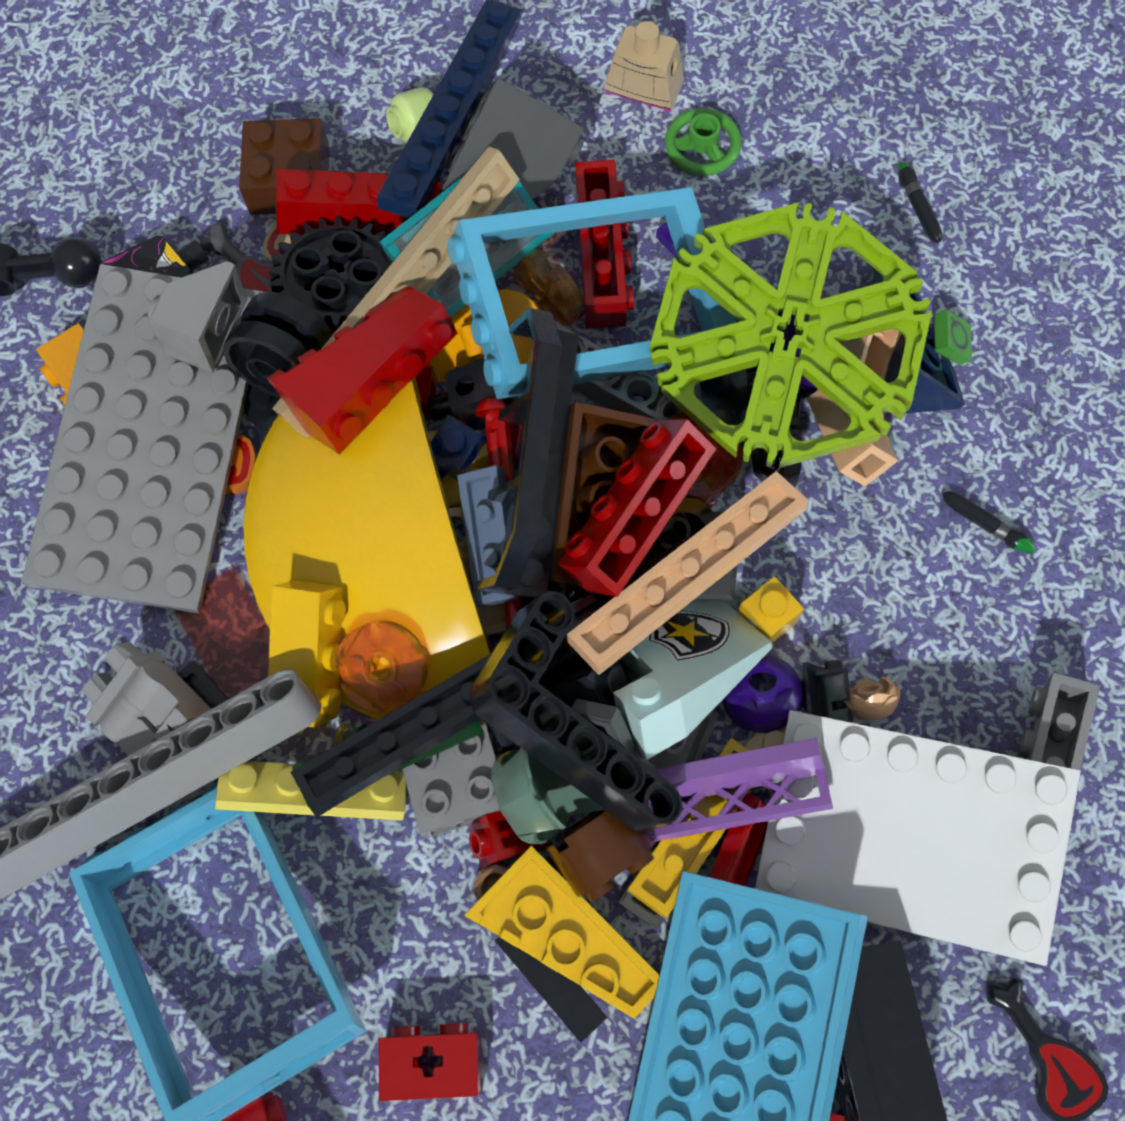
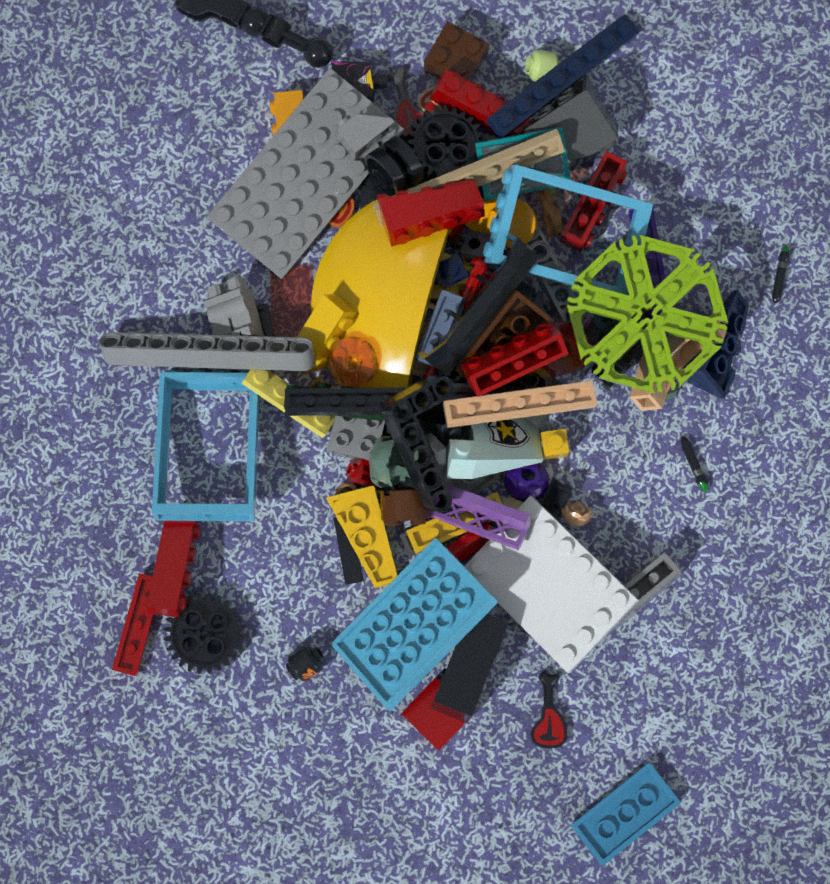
camera: 30 degrees right, 10 degrees up
(405, 1080) = (259, 551): red brick -> none
(646, 67) = (681, 111): tan torso -> none
(703, 138) = (692, 162): bright green piece -> none
(952, 337) = (742, 359): bright green tile -> none

